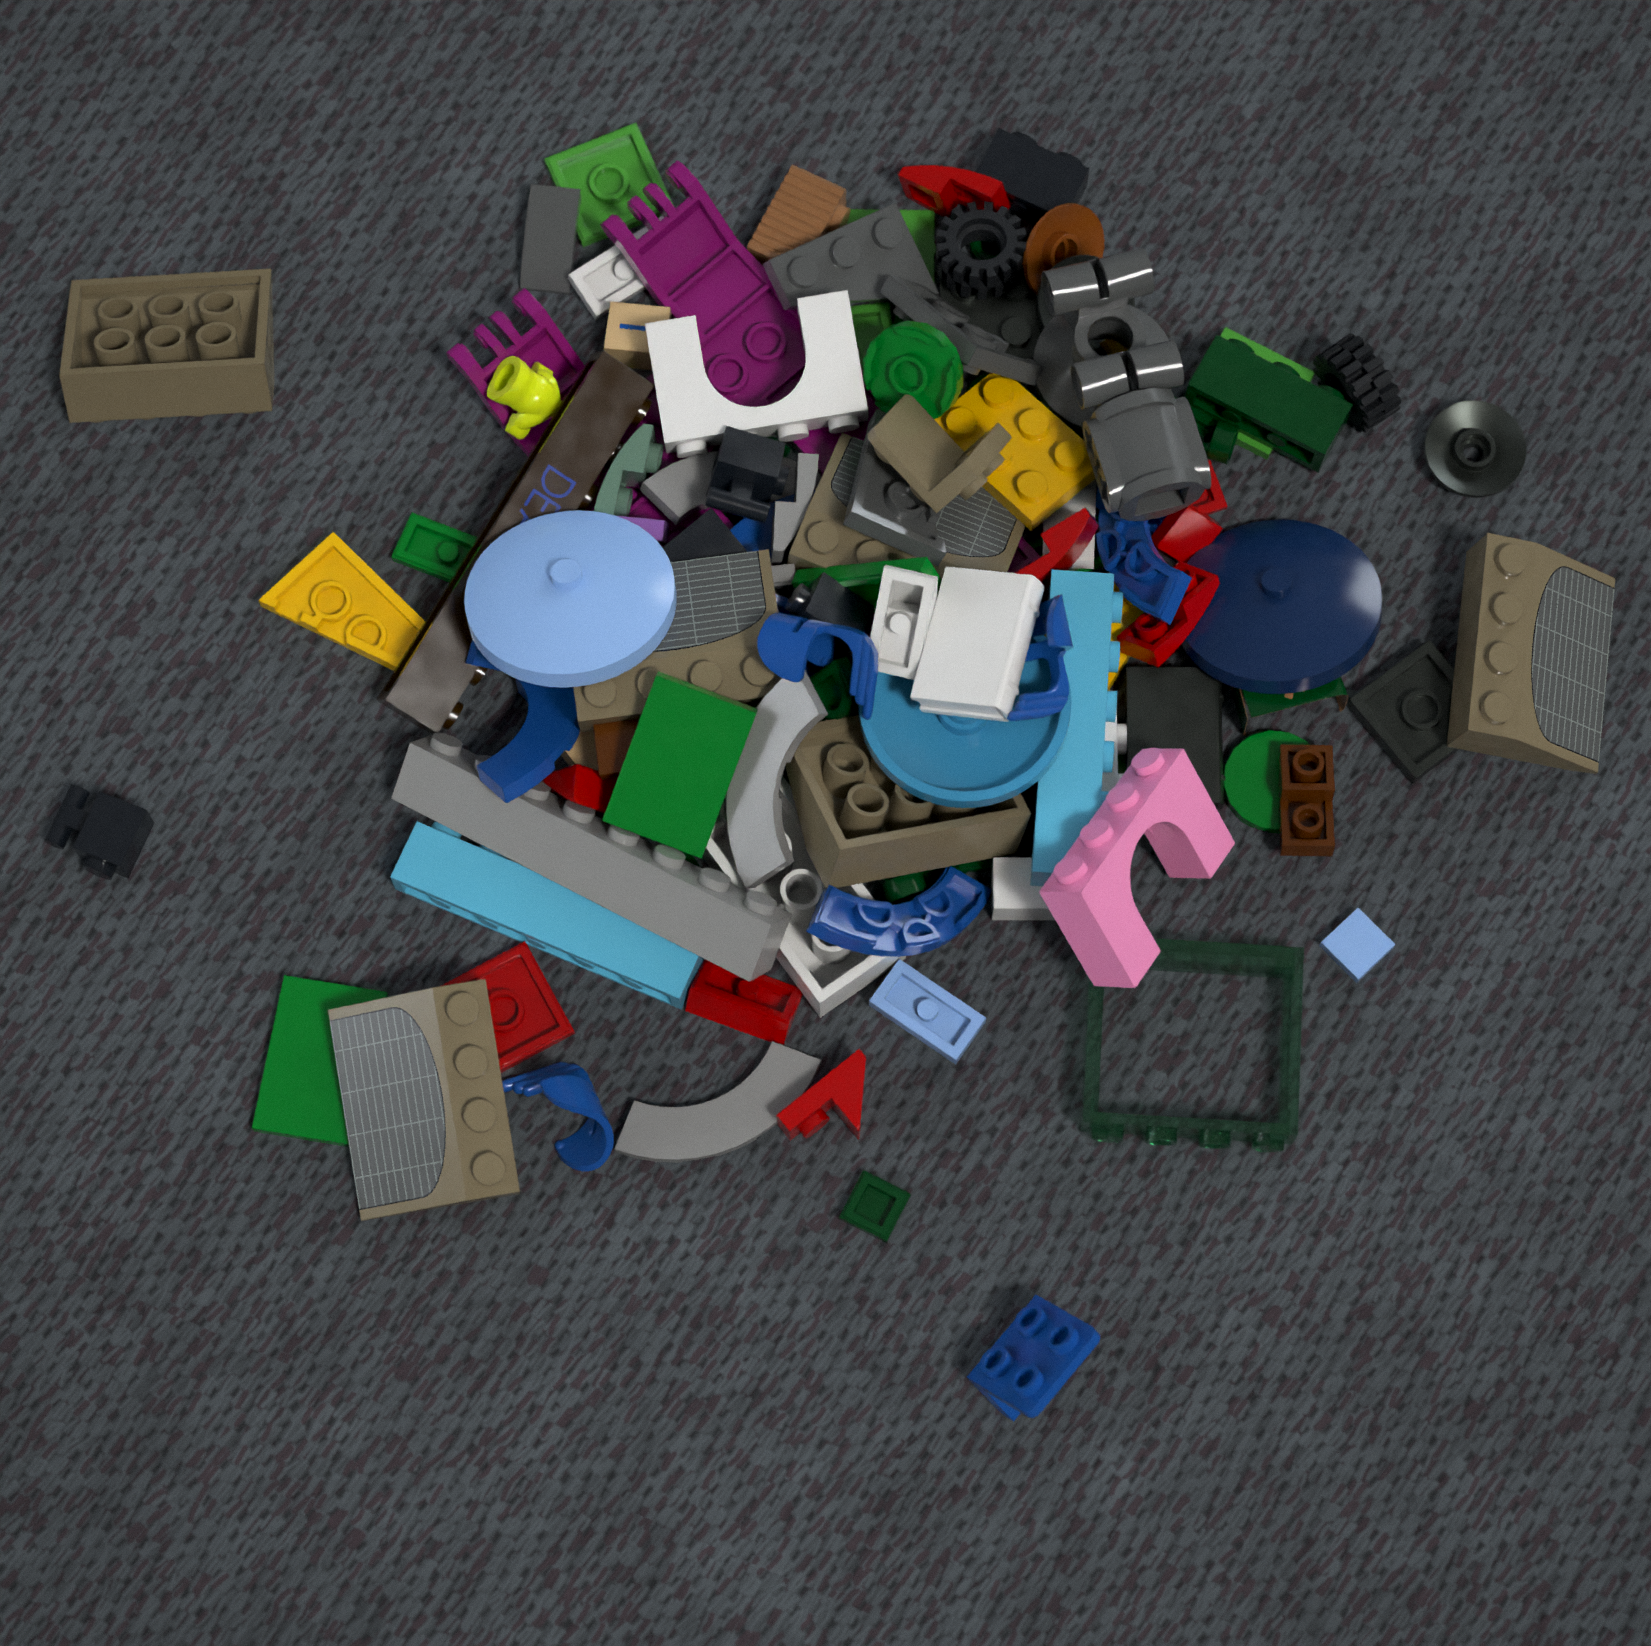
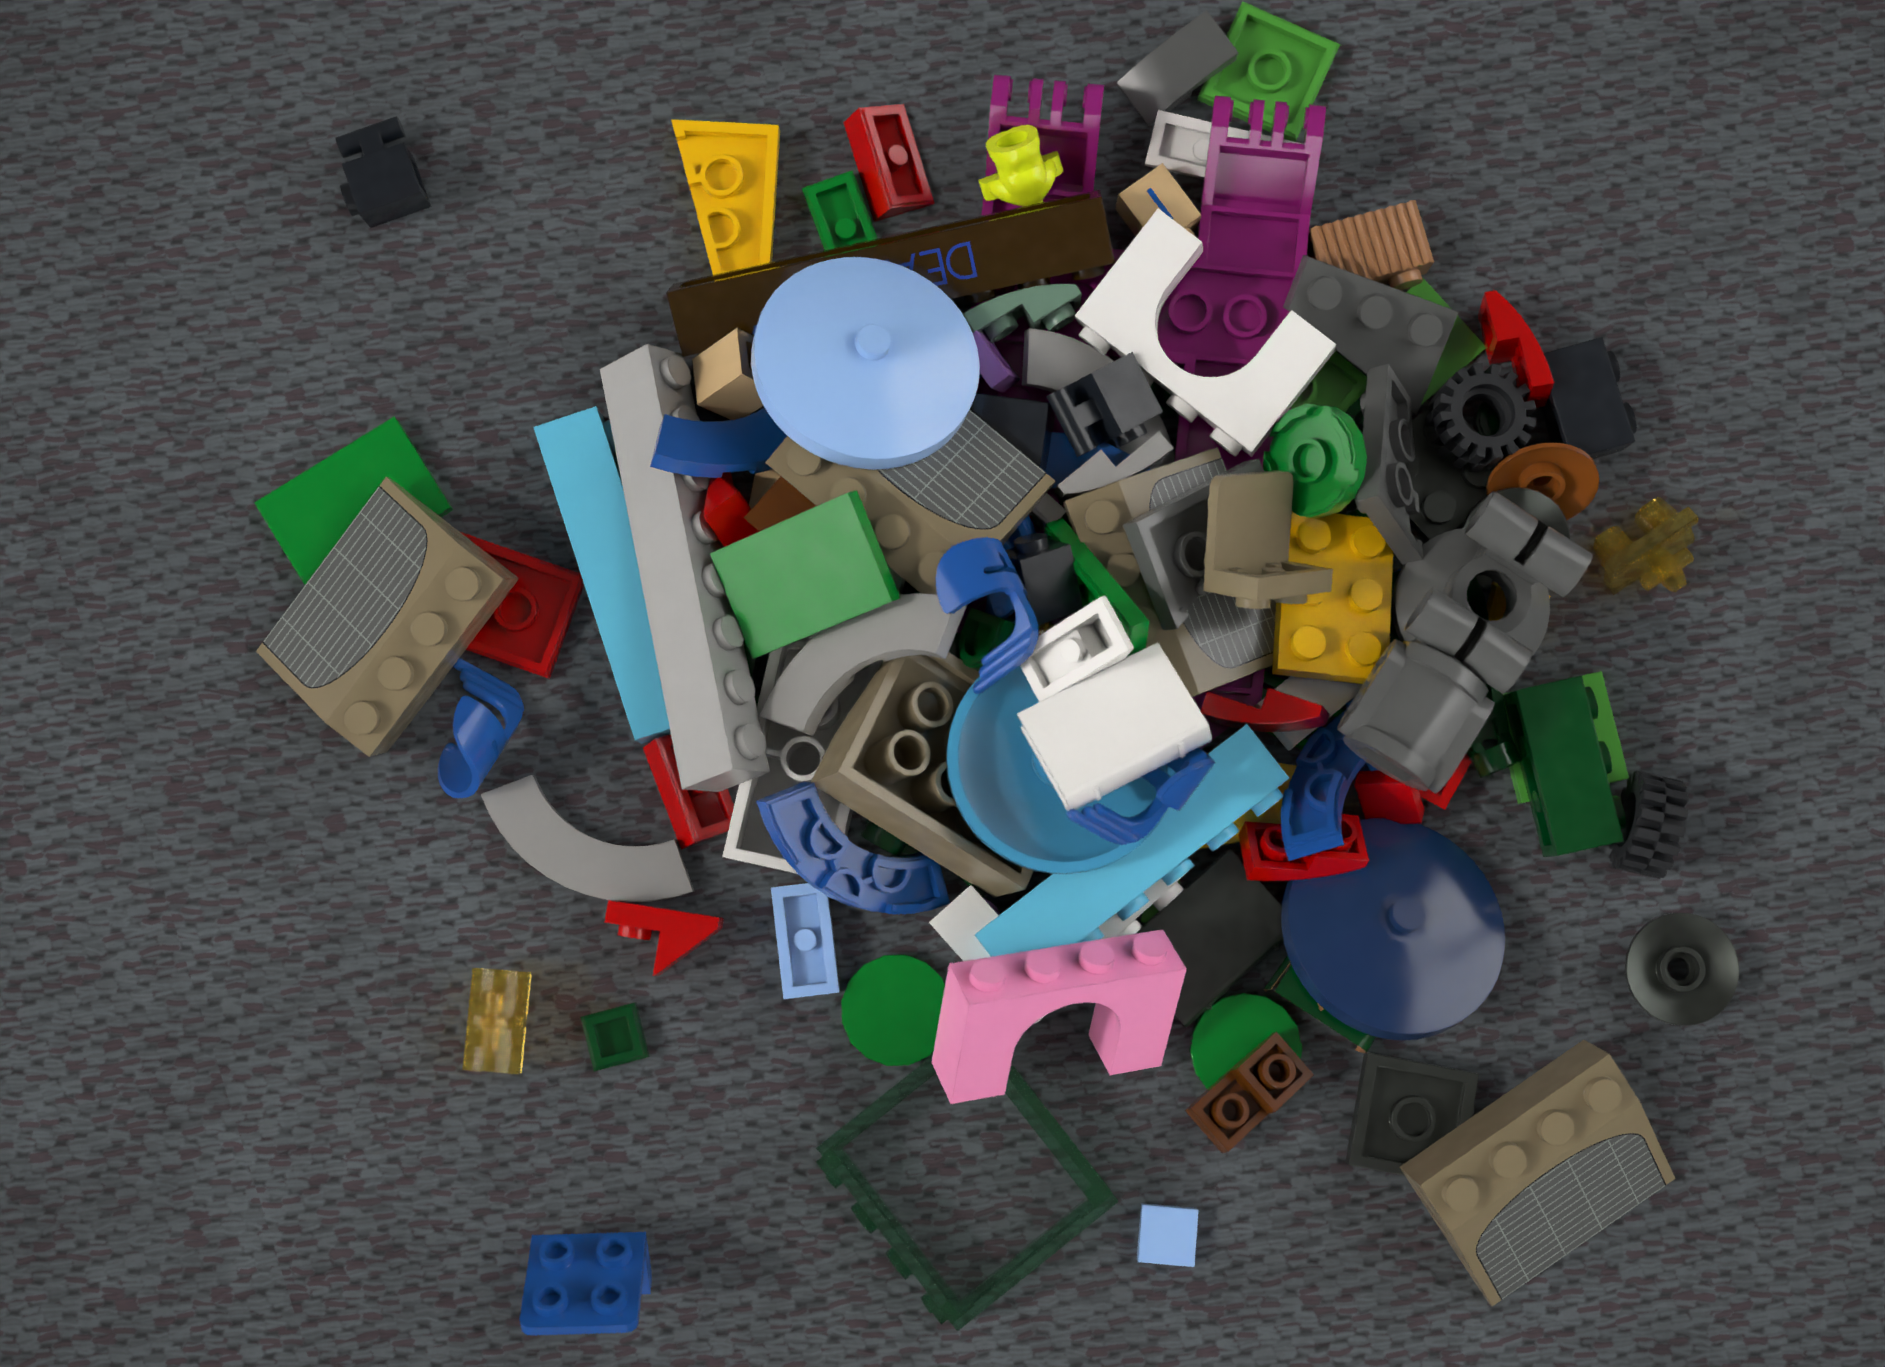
camera: 50 degrees right, 10 degrees up
(427, 485) = (888, 160): none -> red slope
(486, 708) = (725, 377): none -> tan brick
(790, 1272) = (497, 1020): none -> clear yellow hips
(1033, 993) = (893, 1009): none -> green tile
(1178, 226) = (1653, 557): none -> clear yellow hips

